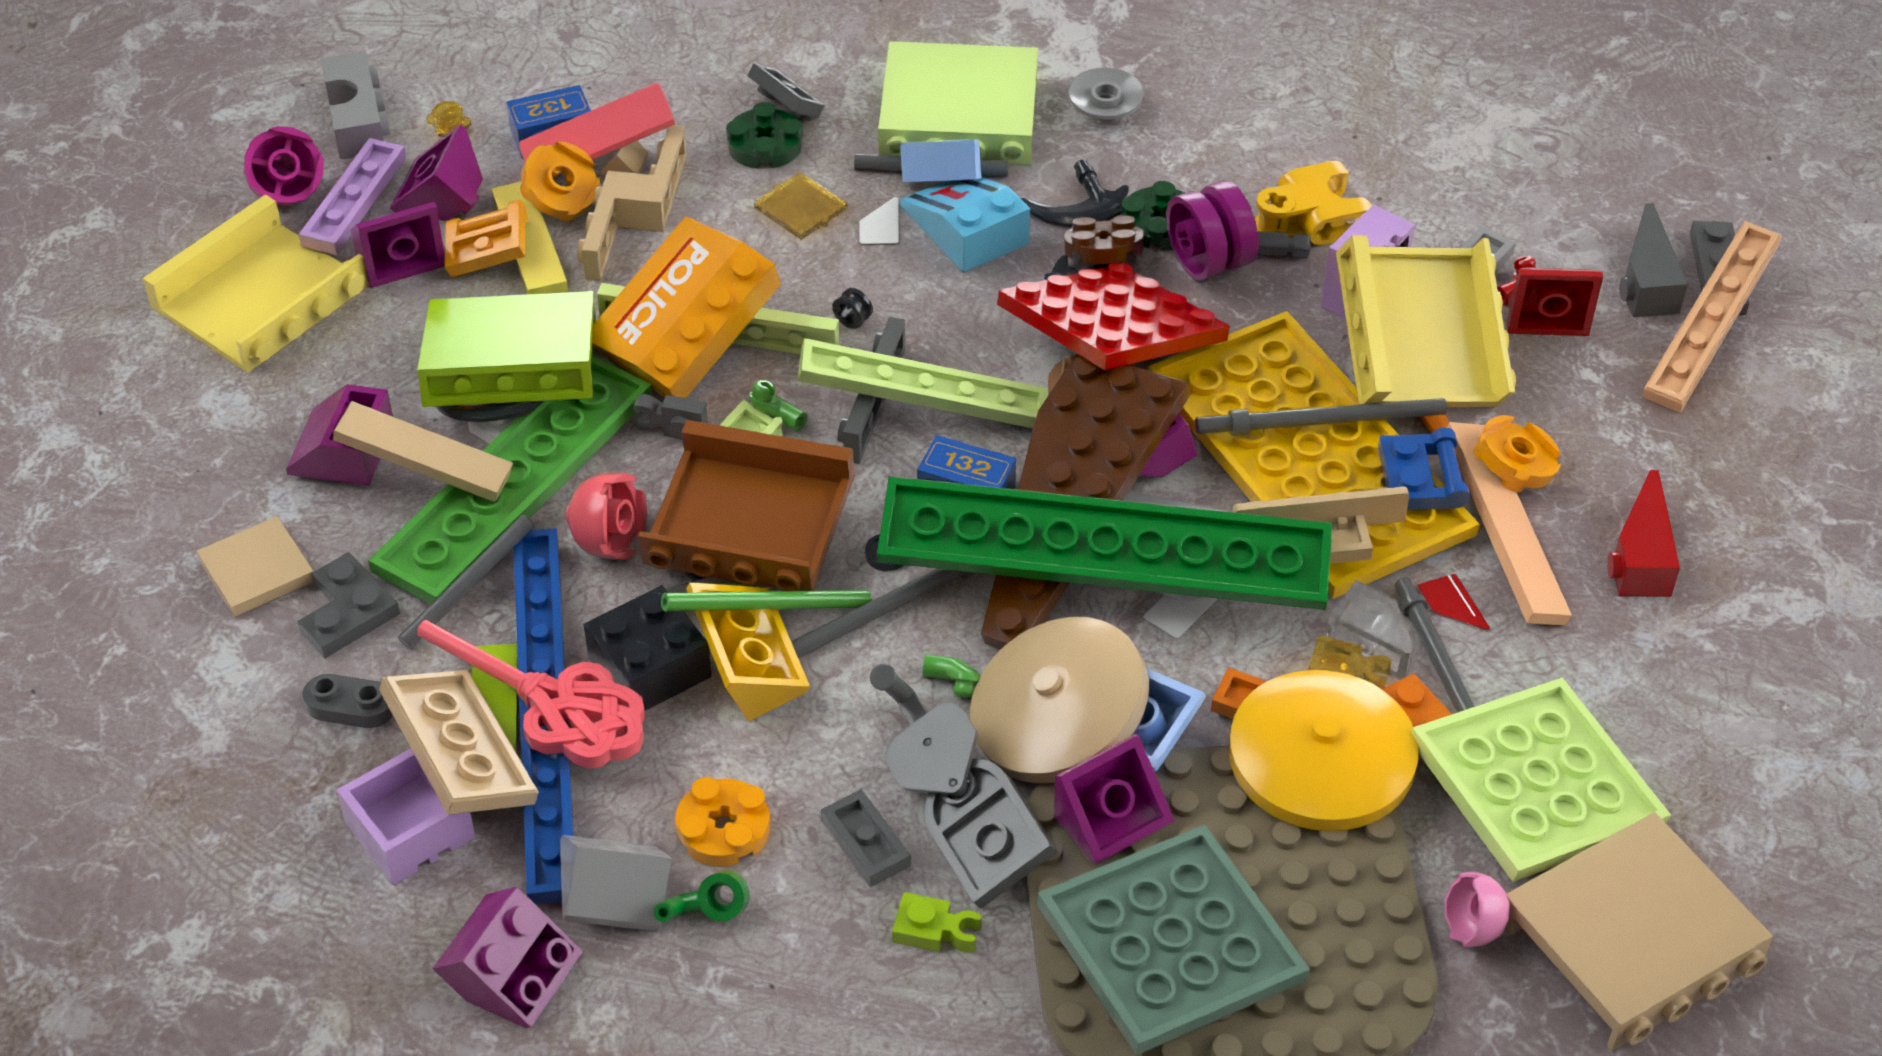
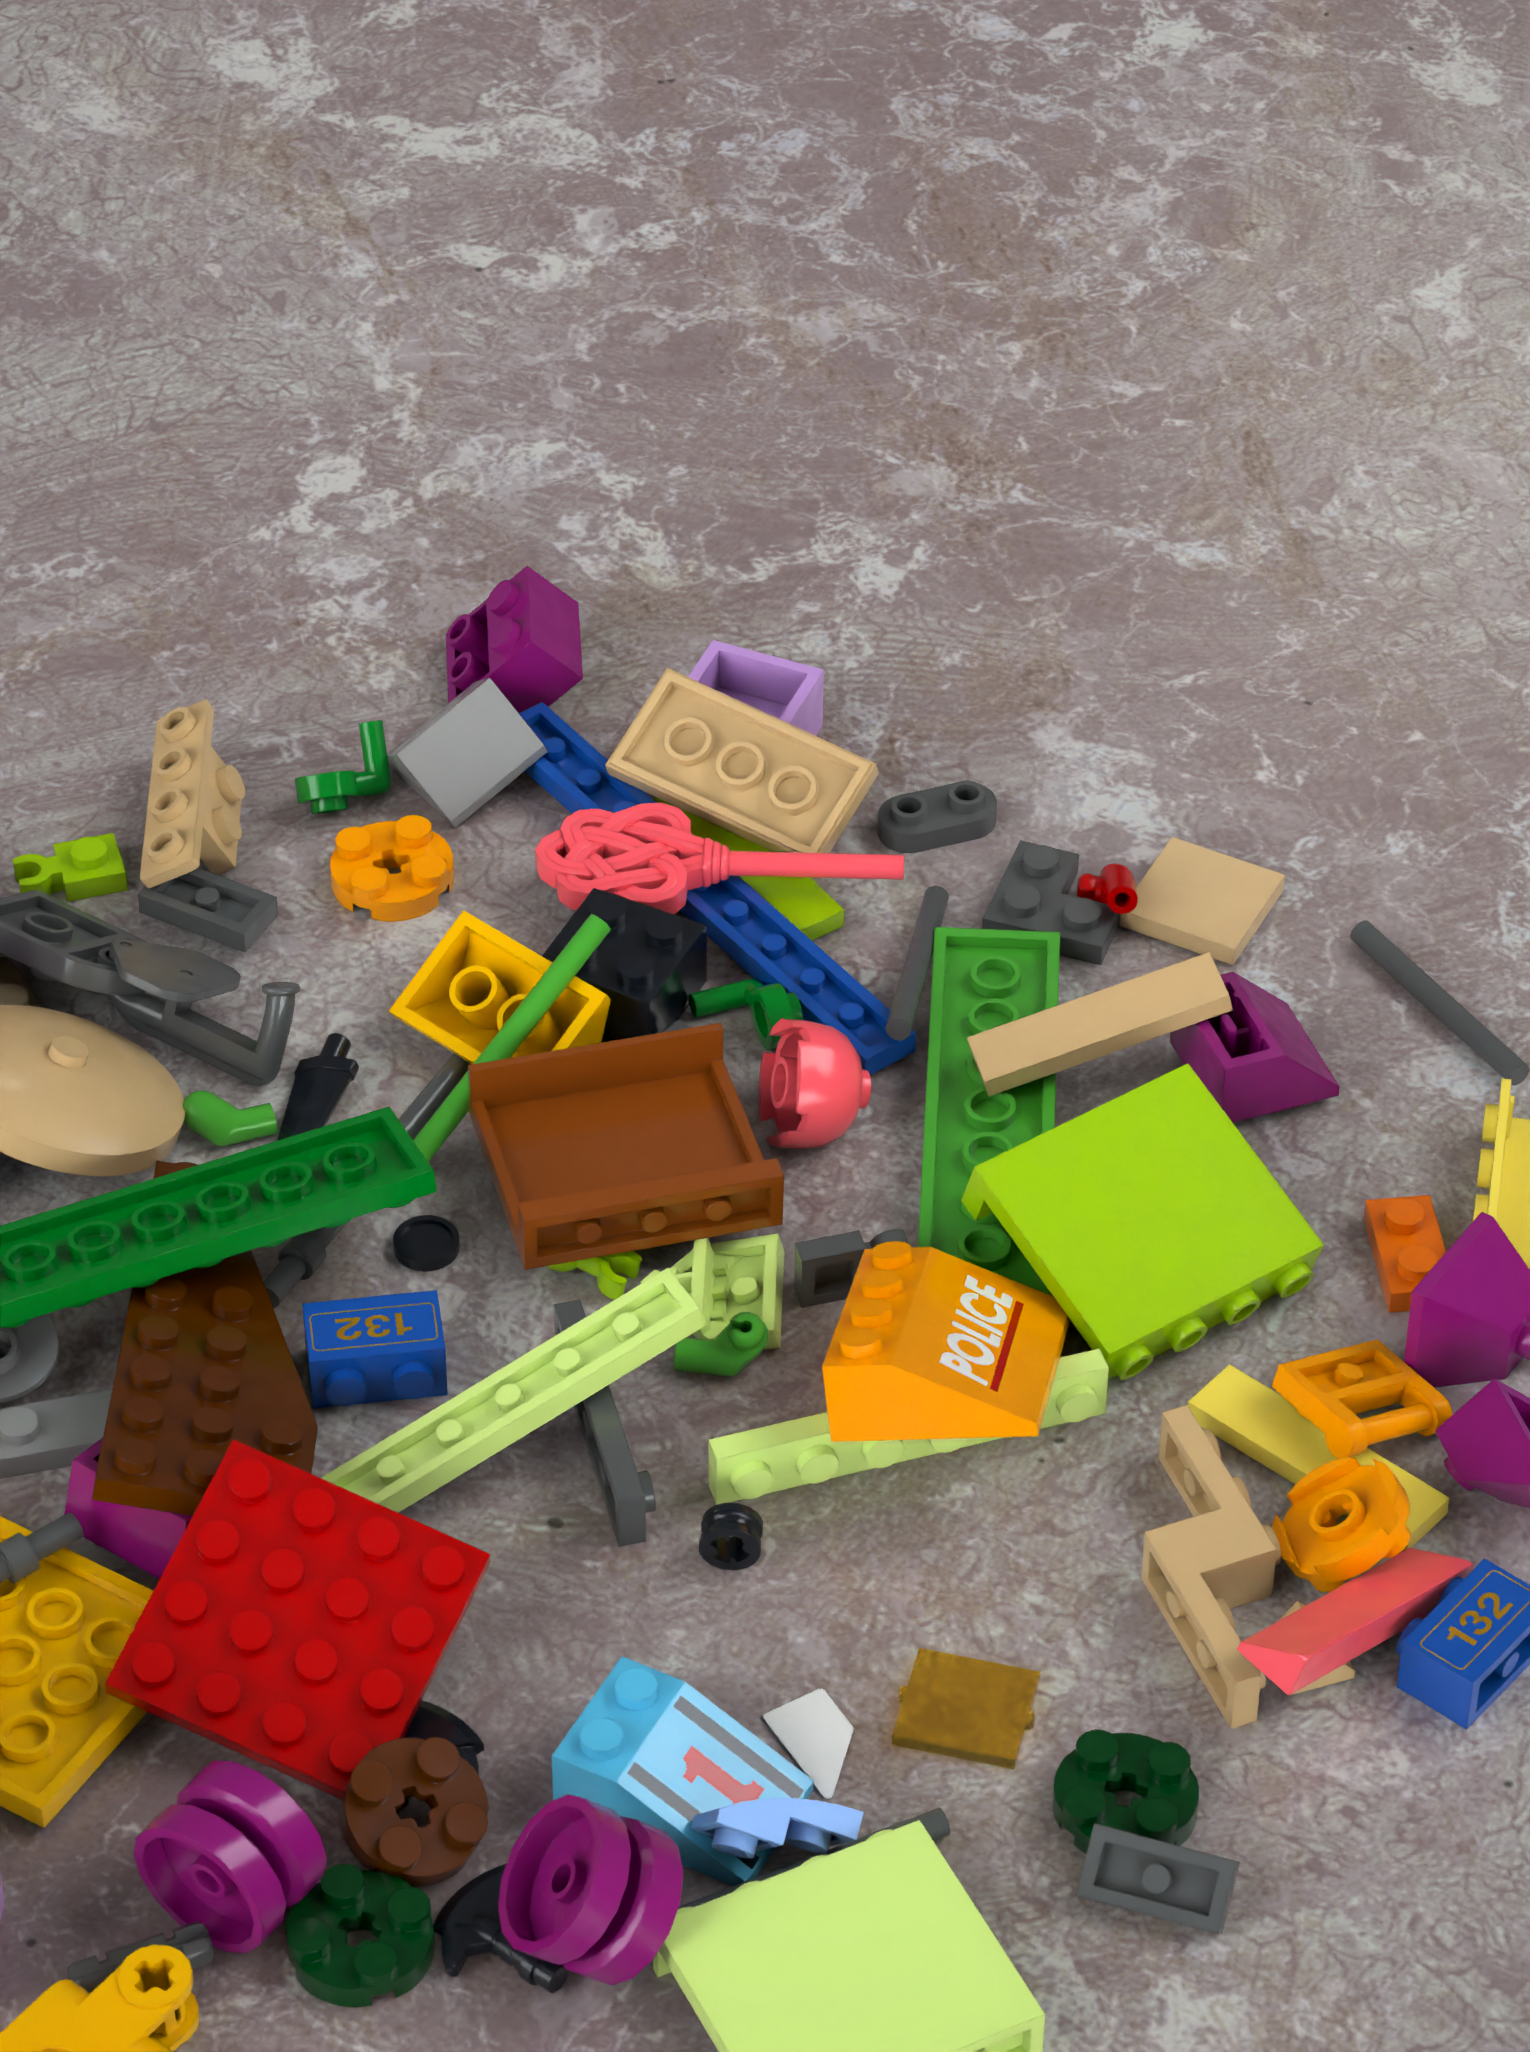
camera: 150 degrees right, 5 degrees down
(199, 445) = (1439, 1002): none -> dark grey bar
(302, 580) = (1113, 887): none -> red arm
(374, 316) = (1403, 1244): none -> orange plate
(579, 589) = (766, 1002): none -> green plate
(832, 910) = (190, 800): none -> tan bracket
(903, 658) = (318, 1087): none -> black bar
(1054, 145) = (590, 1890): none -> magenta wheel

